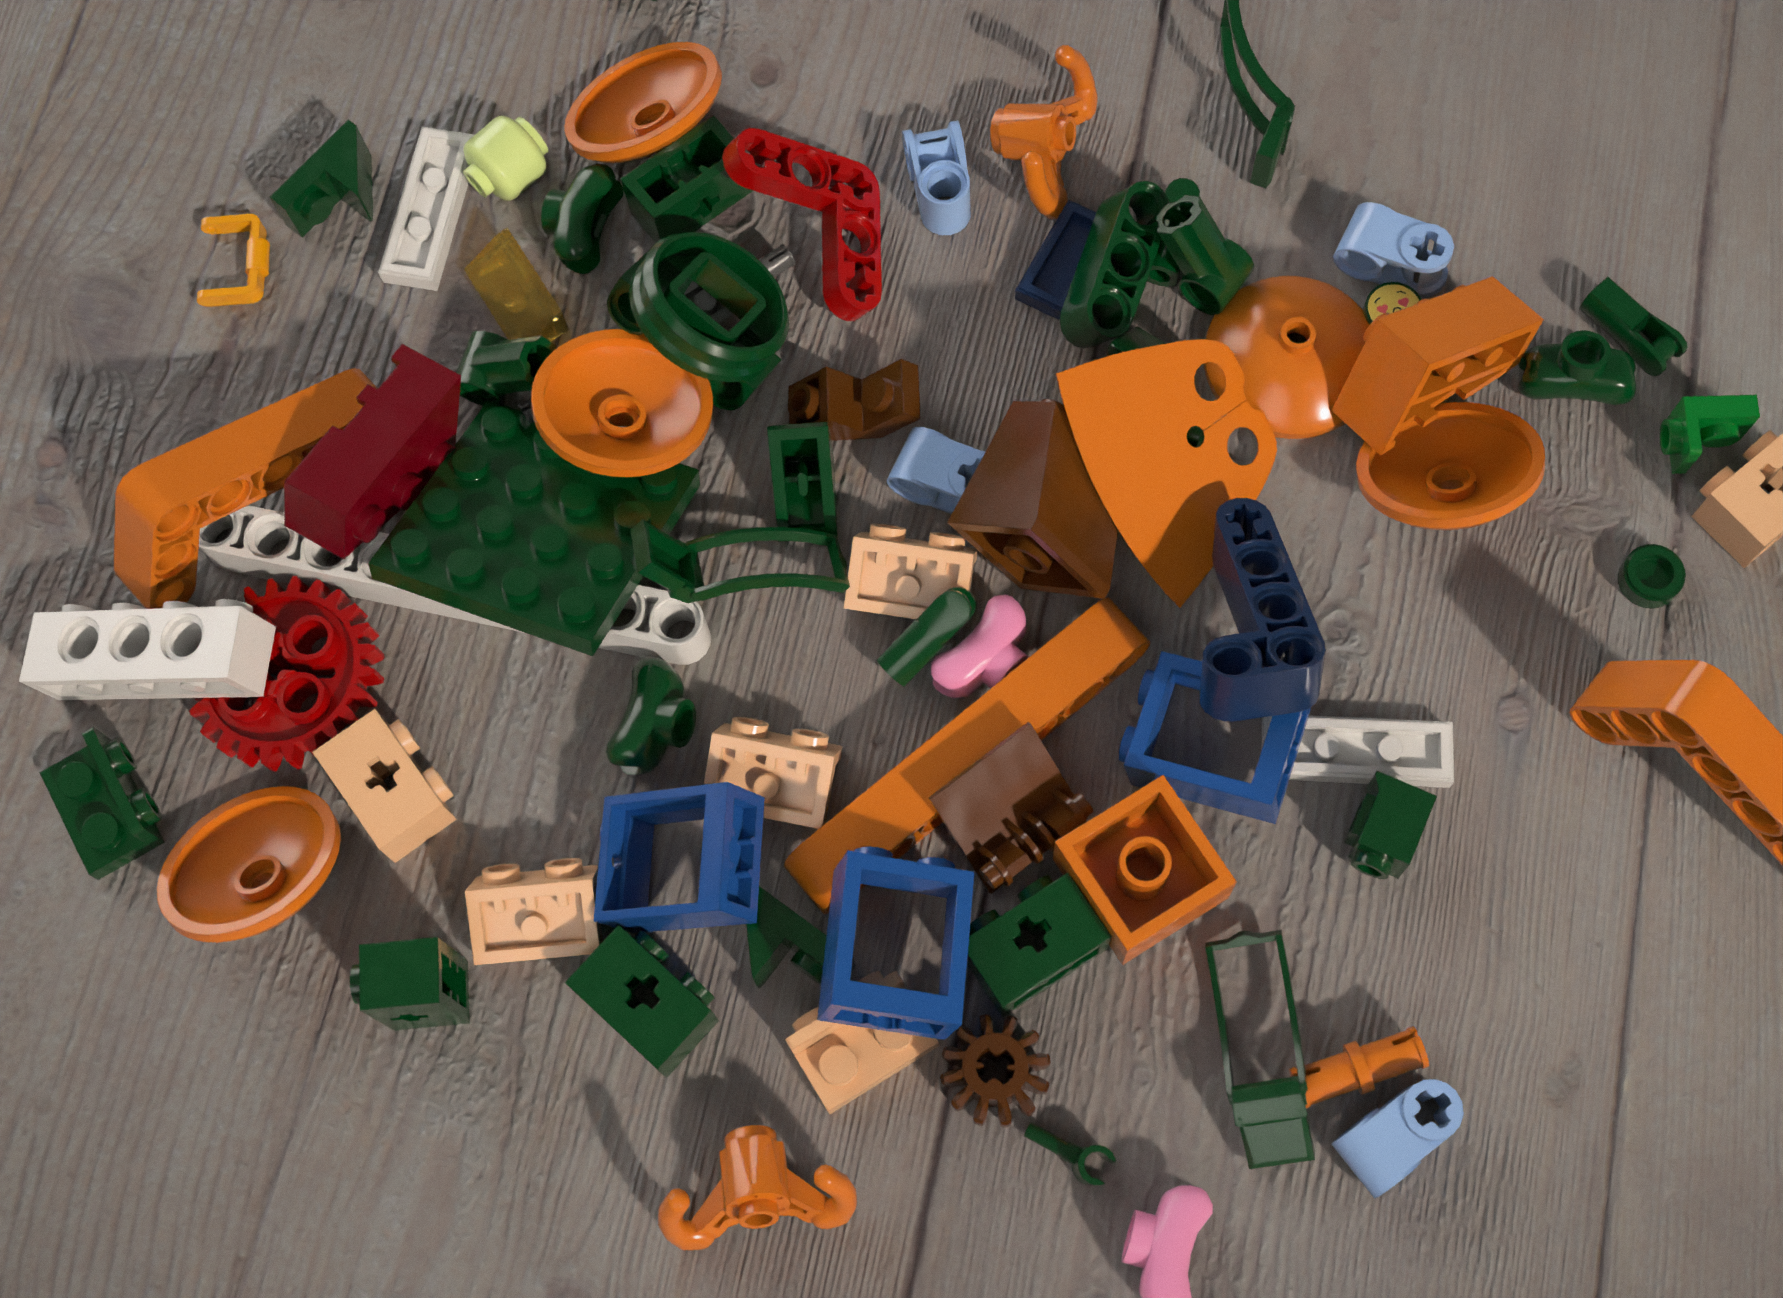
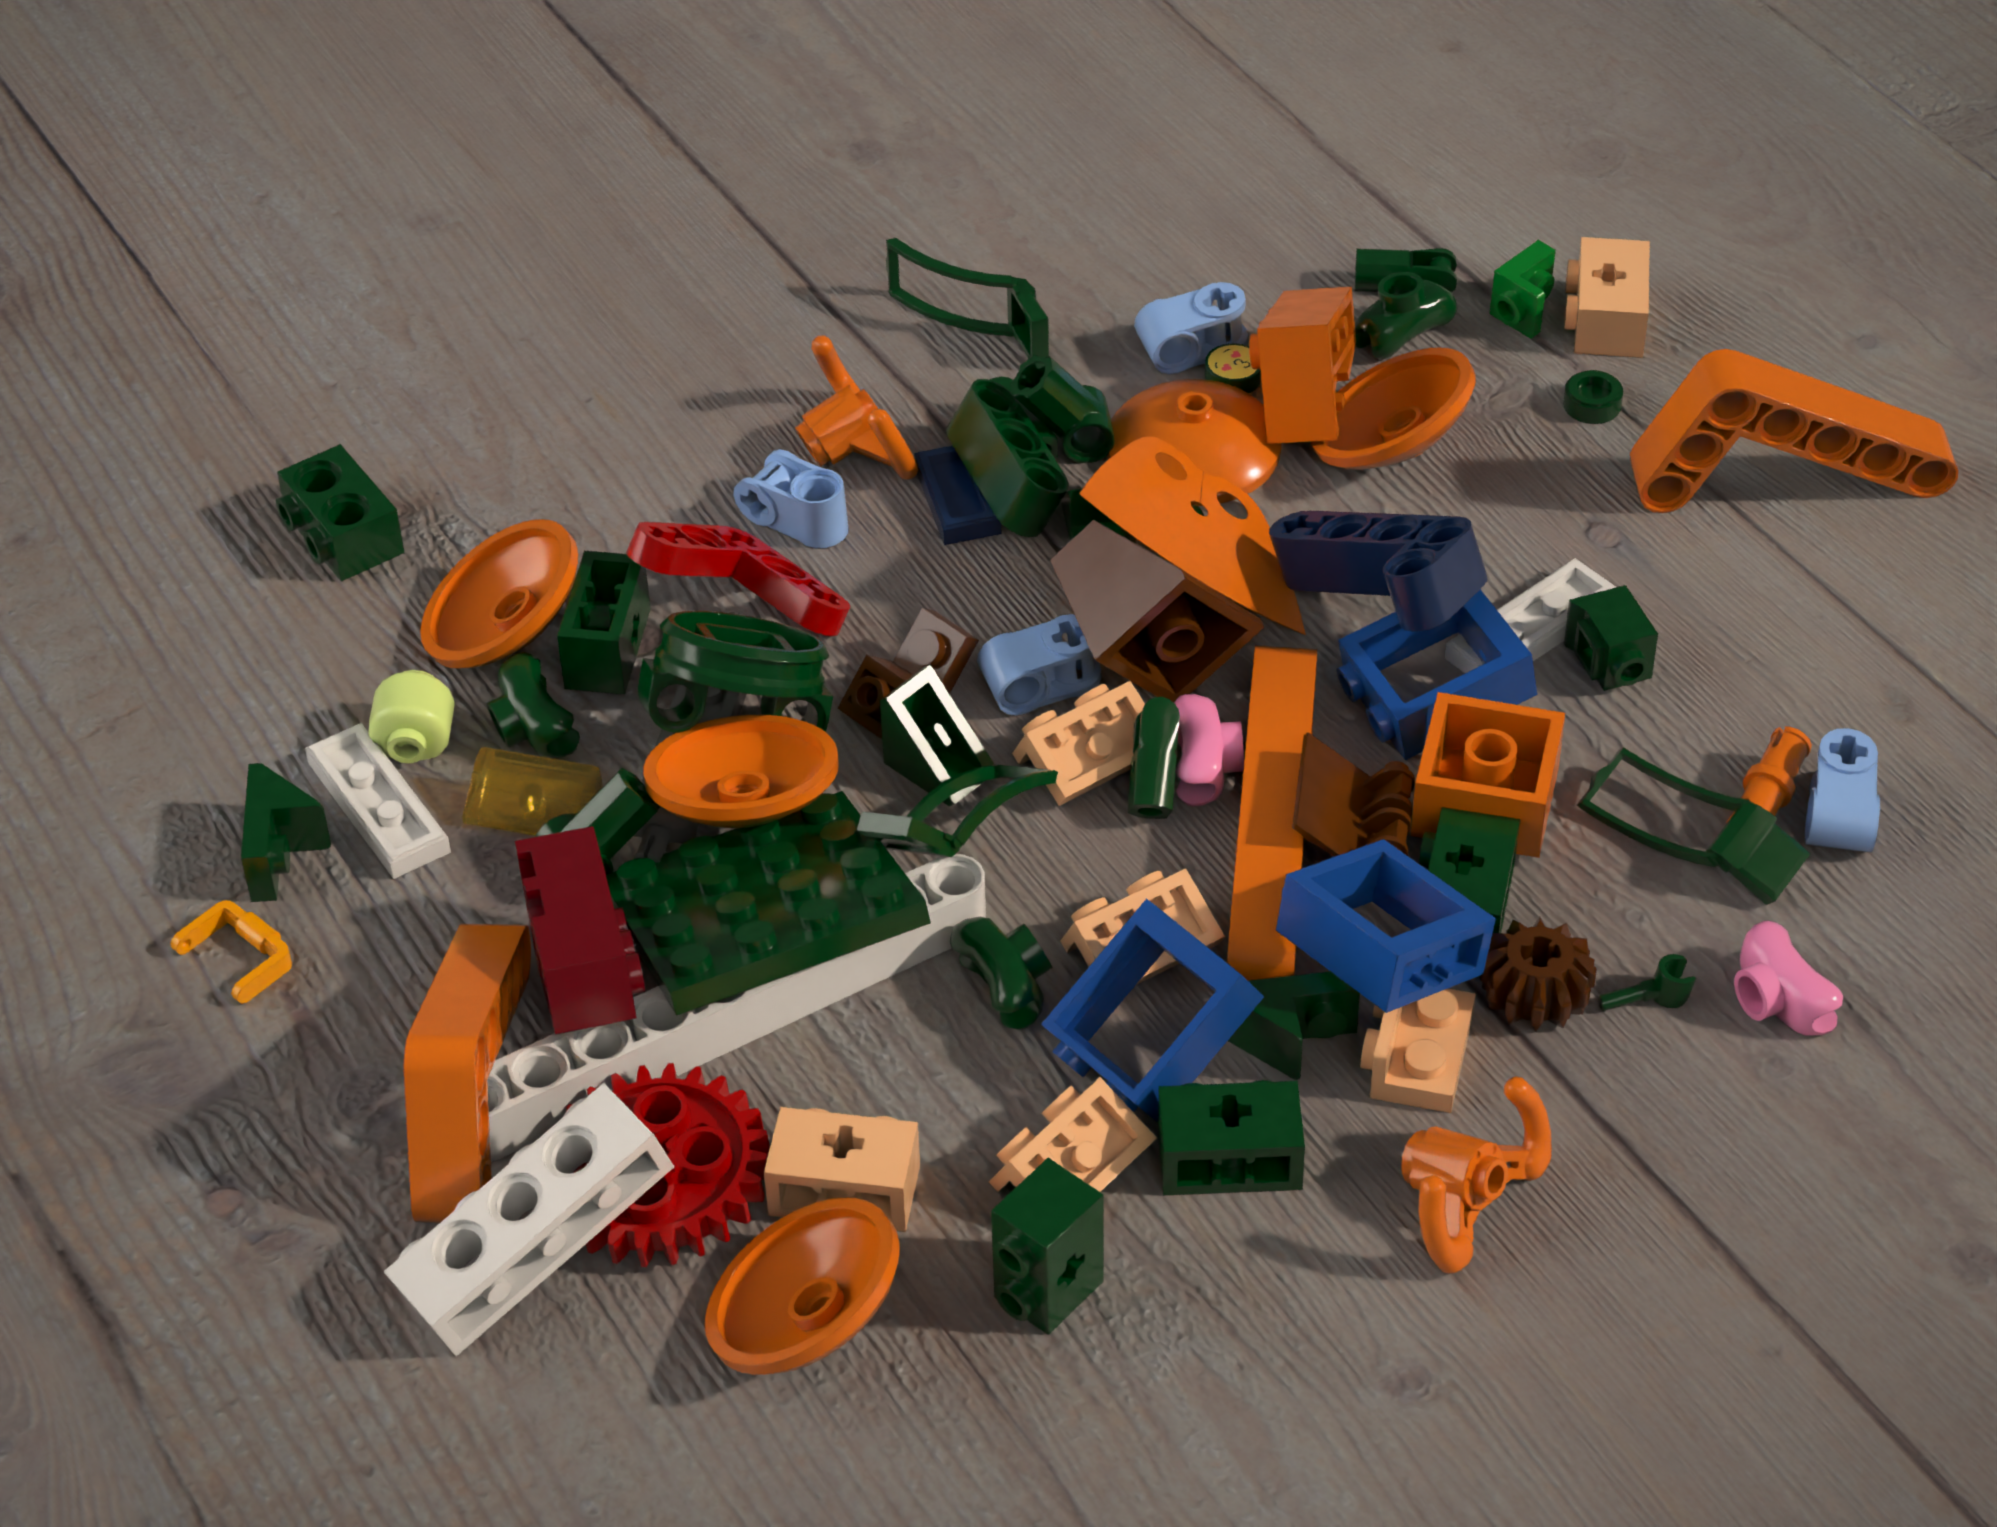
camera: 50 degrees left, 25 degrees down
(102, 804) = (602, 1373): dark green bracket -> none

